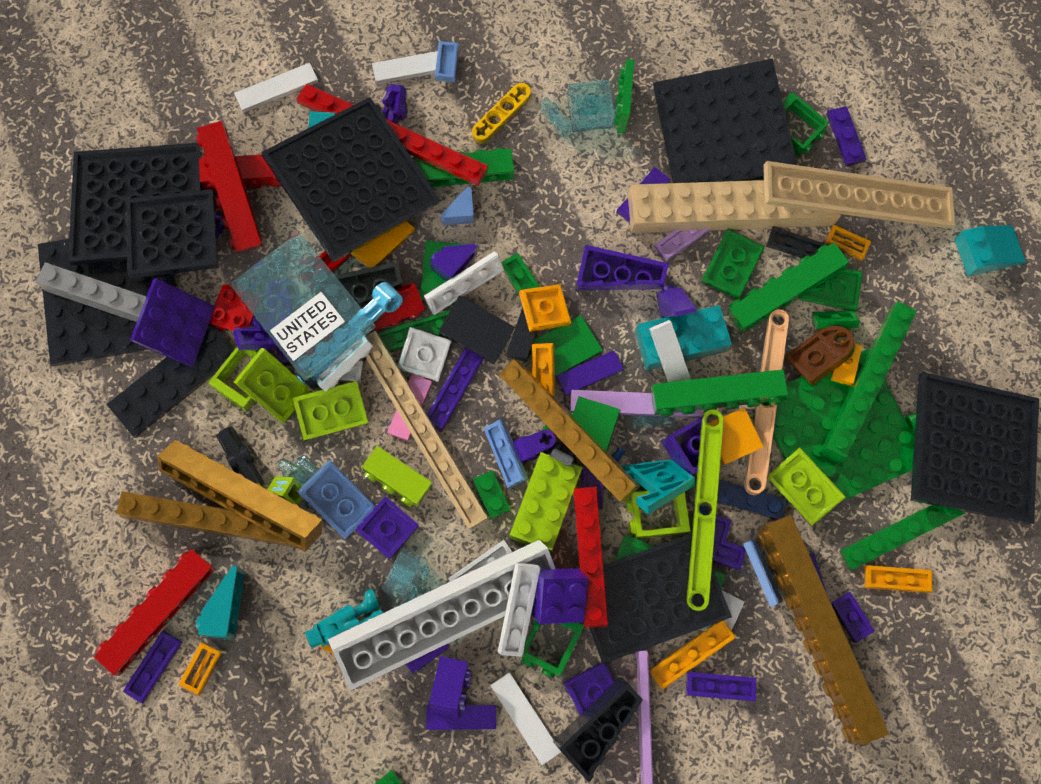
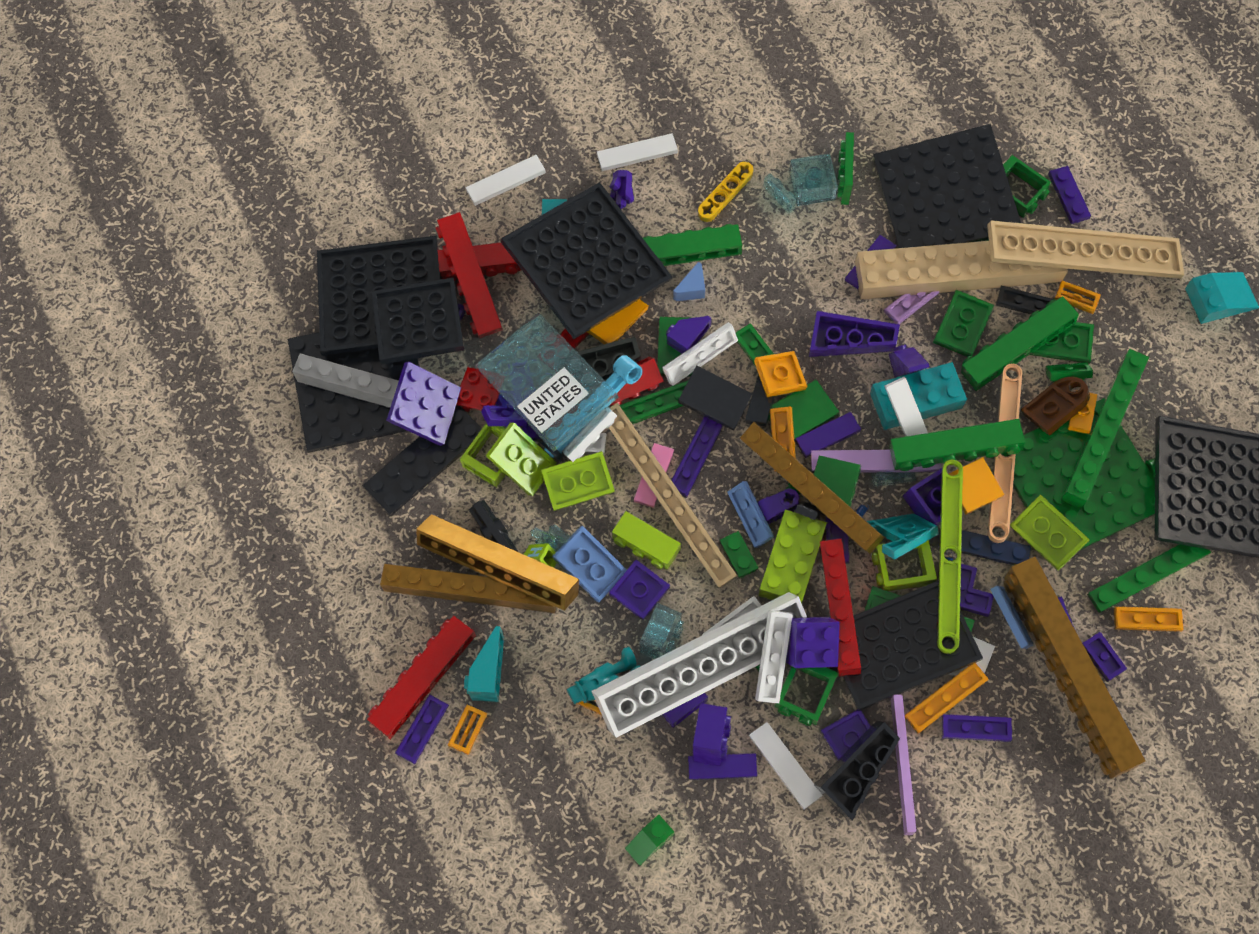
camera: 10 degrees right, 5 degrees down
(415, 144) = (645, 225): red plate -> none
(424, 354) = (665, 423): white tile -> none
(446, 61) = (669, 145): medium blue tile -> none

